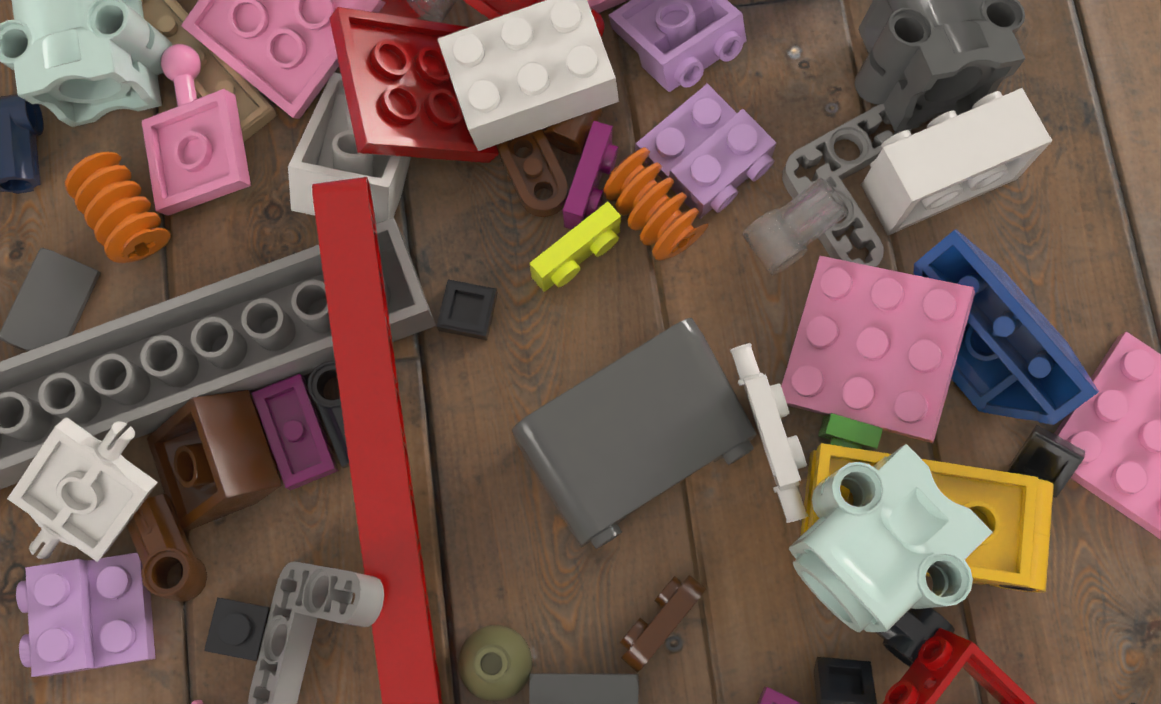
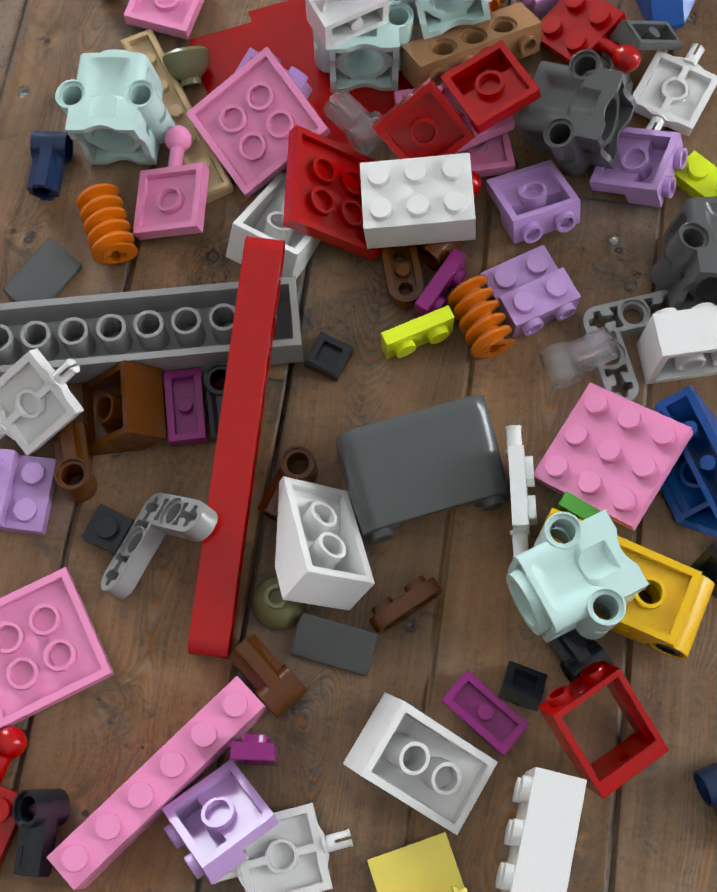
camera: 15 degrees right, 5 degrees down
(461, 508) = (269, 503): none -> reddish brown piece
(528, 578) = (319, 546): none -> white slope

